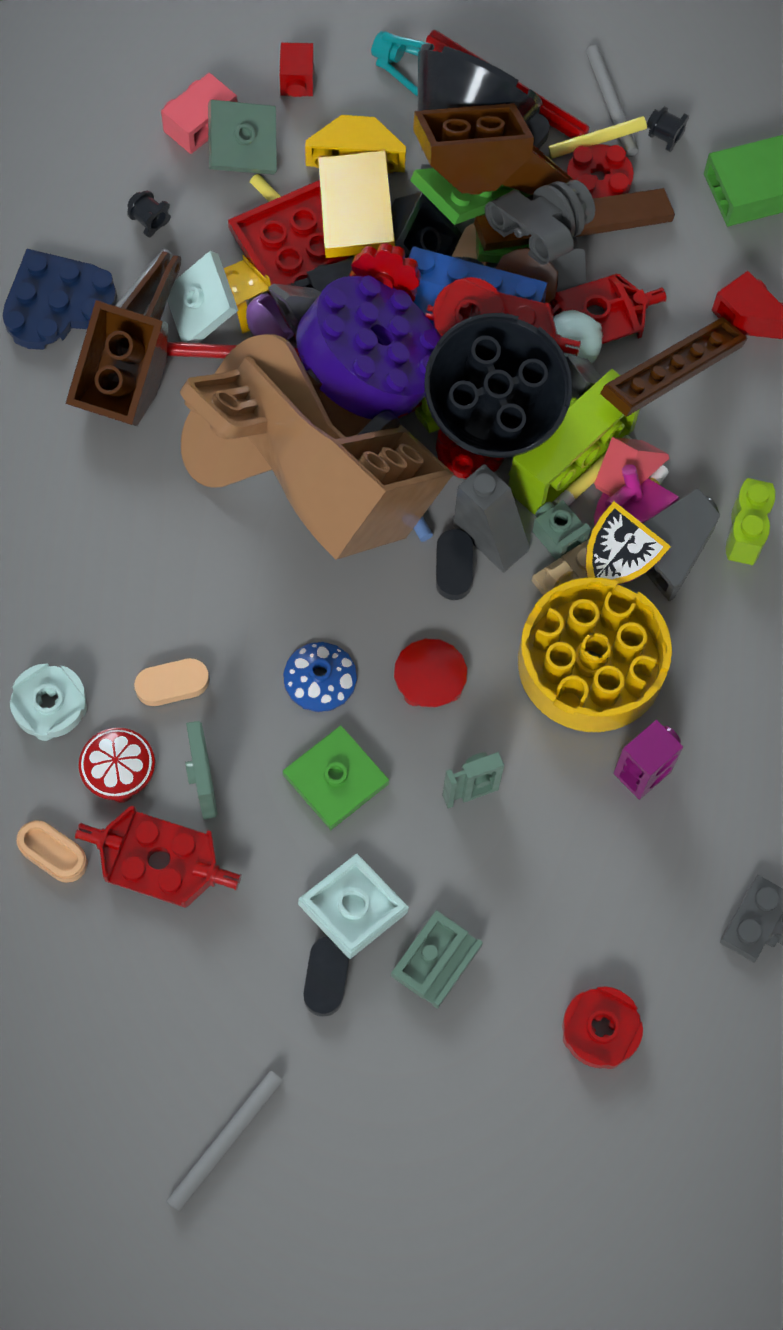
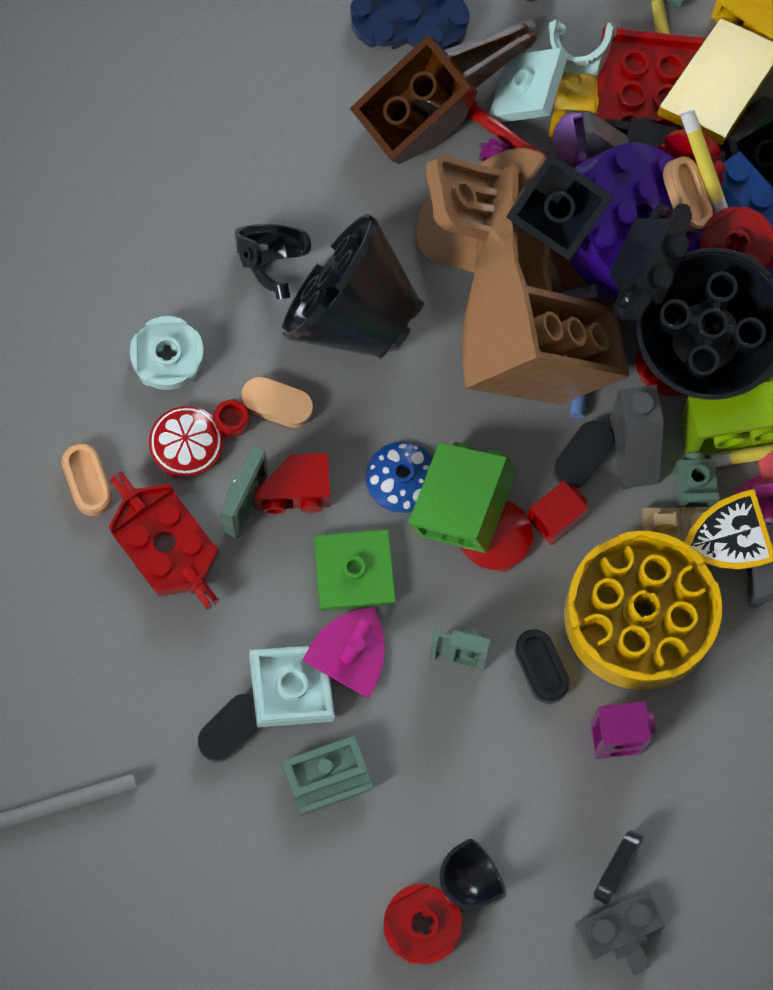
camera: 35 degrees right, 5 degrees up
(72, 555) = (282, 242): none -> black helmet
(143, 718) = (231, 418): none -> red tile
(179, 549) = (357, 297): none -> black cone
(207, 366) = (492, 148): none -> magenta plate
(234, 257) = (588, 64): none -> light aqua helmet
(240, 735) = (296, 483): none -> red slope
(312, 360) = (558, 205): none -> black slope
(380, 844) = (350, 650): none -> dark pink shield
(385, 657) = (463, 496): none -> bright green brick
(398, 263) = (704, 160): none -> light yellow bar
(402, 298) = (687, 187): none -> light nougat tile
(416, 362) = (650, 259): none -> black hinge
(469, 621) = (558, 512): none -> red brick
(544, 754) = (542, 666): none -> black tile
(615, 962) = (471, 877): none -> black helmet
(722, 872) = (618, 867): none -> black tile

